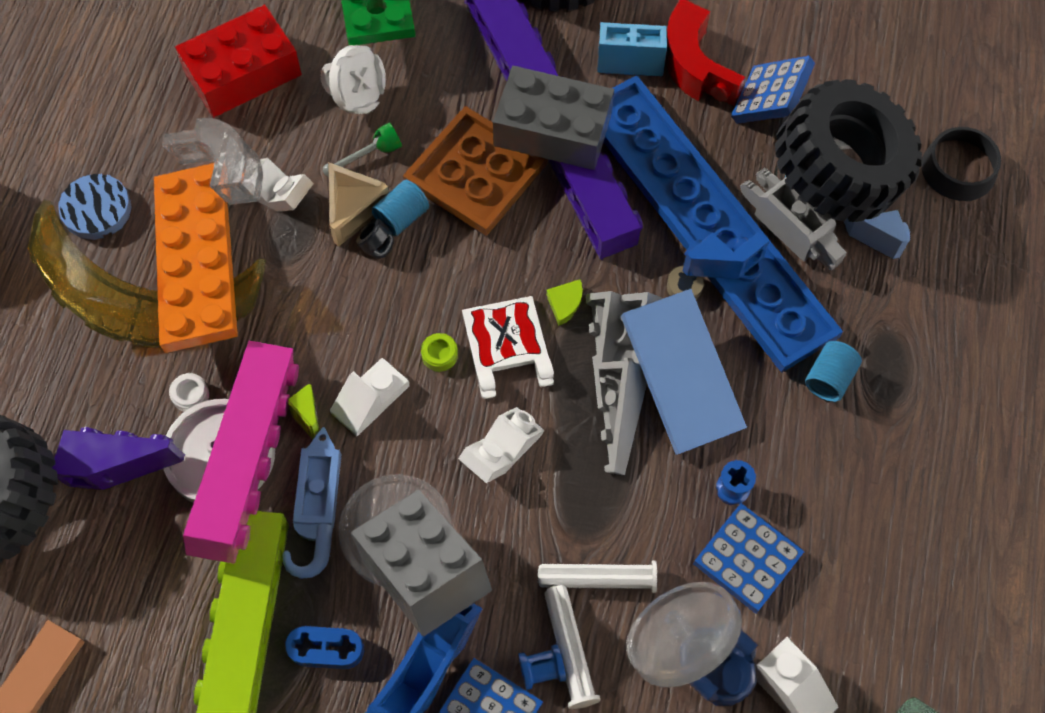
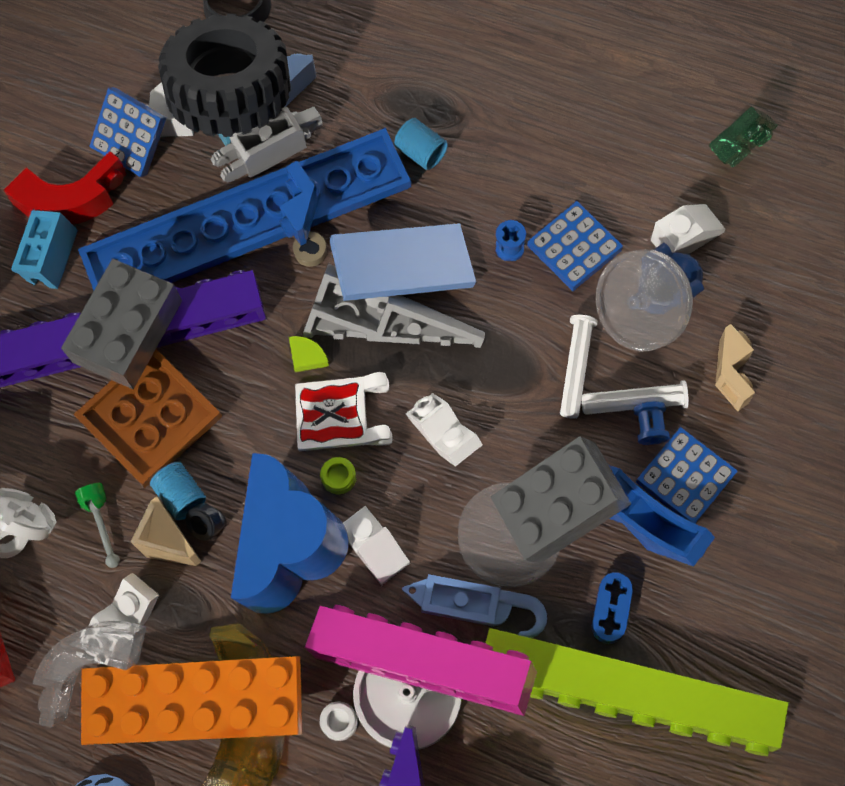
camera: 75 degrees left, 5 degrees up
(304, 411) = (384, 602): lime slope -> none
(360, 301) = (283, 538): none -> blue brick

